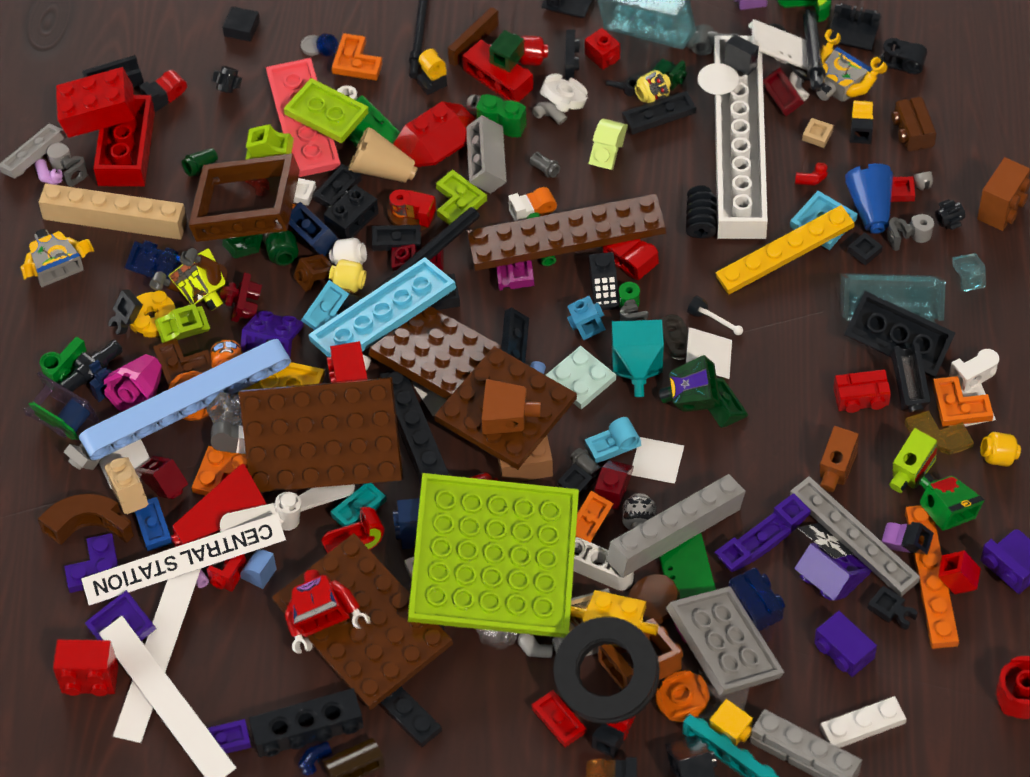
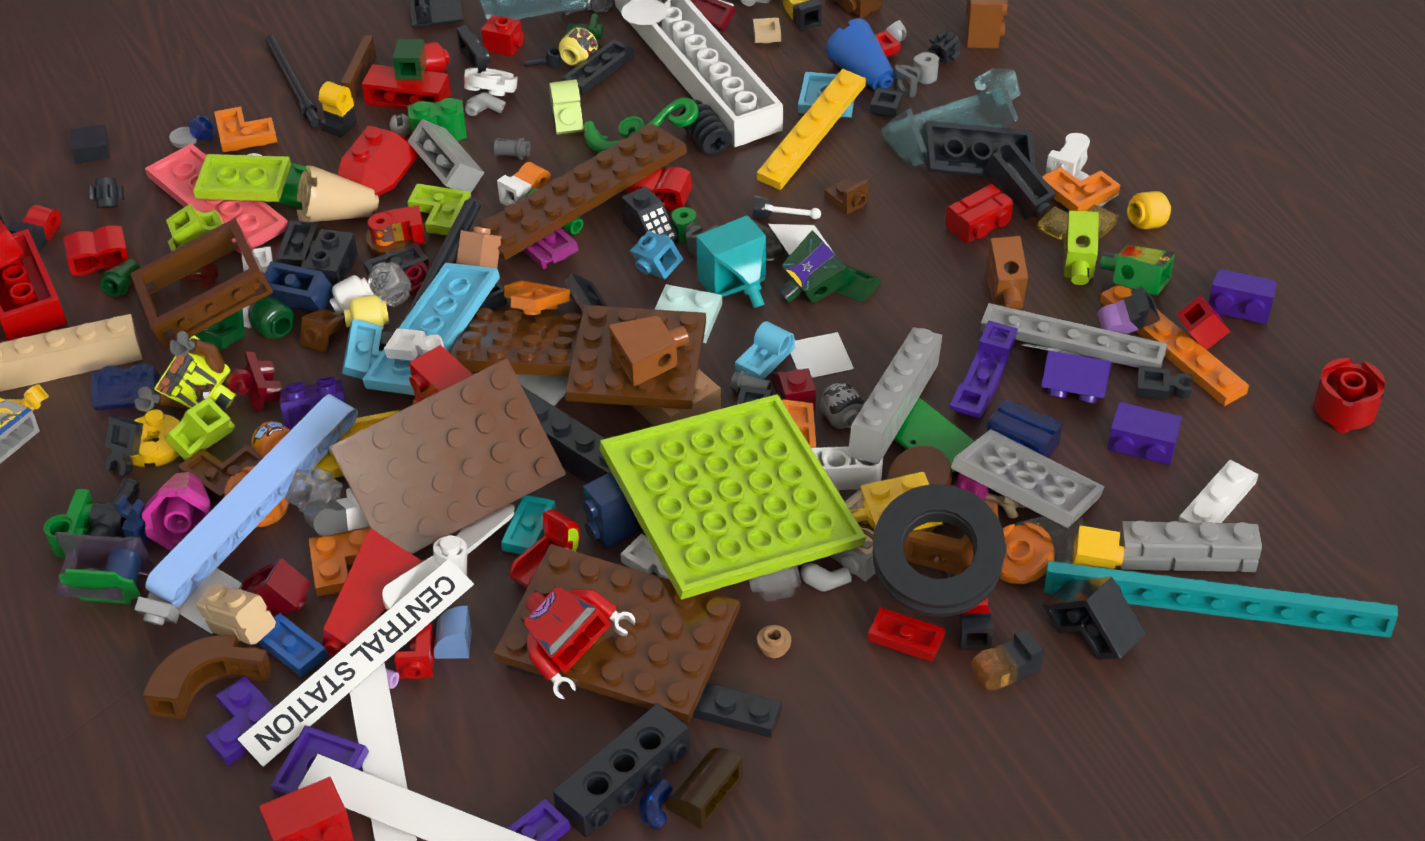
camera: 30 degrees left, 10 degrees down
(194, 129) = (95, 250): none -> red brick
(352, 322) = (409, 344): none -> white plate
(378, 255) = (389, 283): none -> clear head
(457, 254) = (478, 248): none -> nougat brick
(467, 684) = (777, 647): none -> medium nougat plate
(475, 314) = (535, 297): none -> orange plate
(647, 185) = (634, 124): none -> green plant
(773, 325) = (847, 196): none -> reddish brown bracket
(814, 177) = (790, 66): red arm -> none

